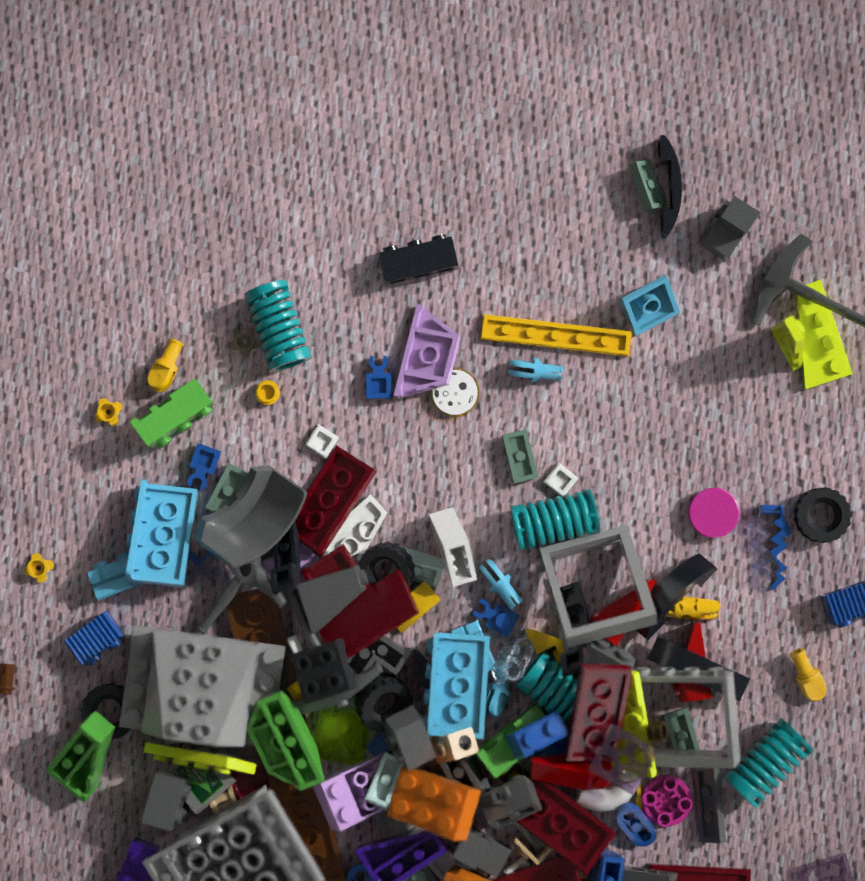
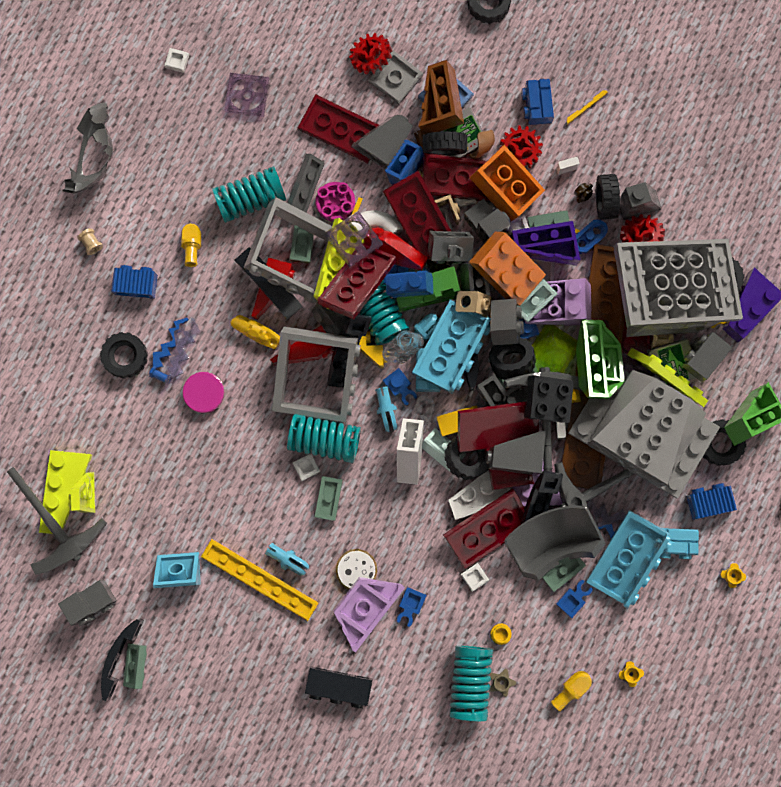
camera: 150 degrees left, 5 degrees down
(173, 414) = (582, 648): bright green wedge -> none
(634, 822) = (367, 197): blue plate -> none
(657, 732) = (319, 248): dark brown plate -> none
(675, 586) = (255, 350): black slope -> none

